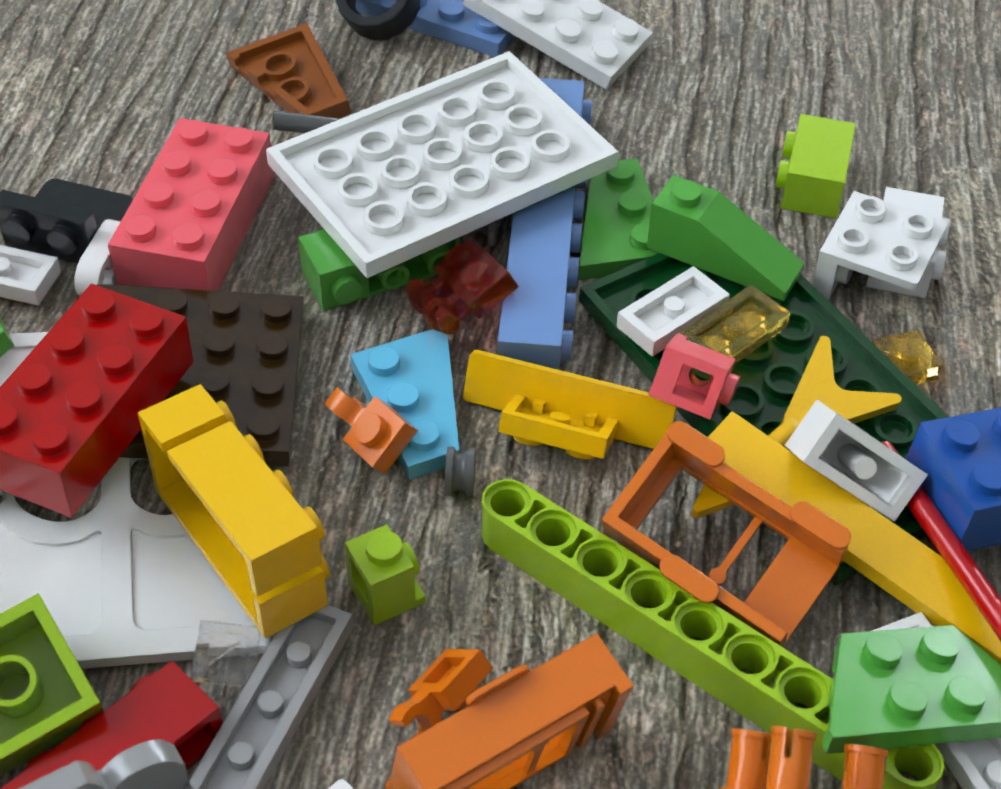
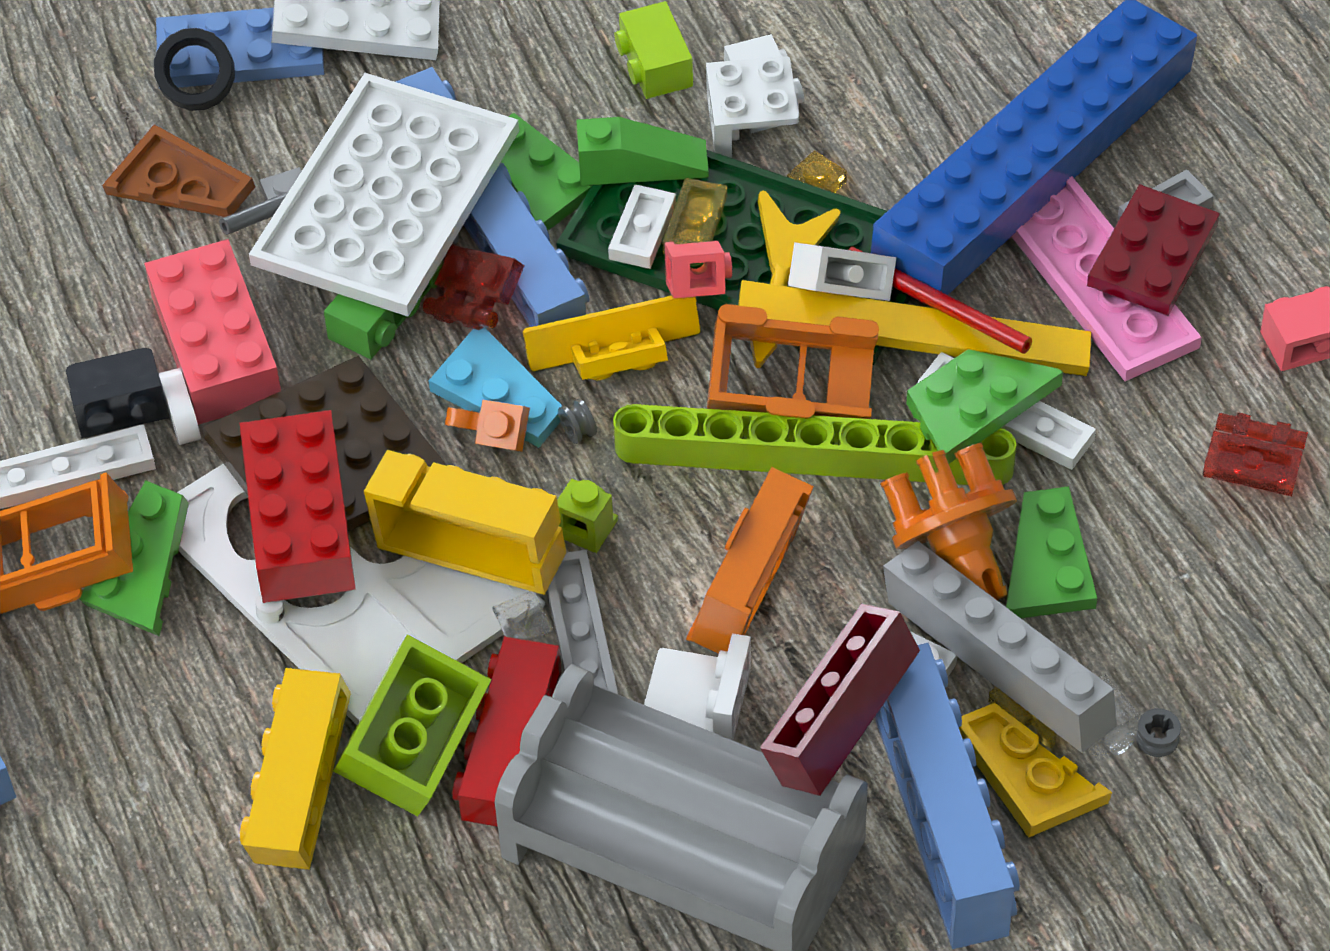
camera: 30 degrees left, 5 degrees up
(442, 688) = (677, 559): orange plate -> none

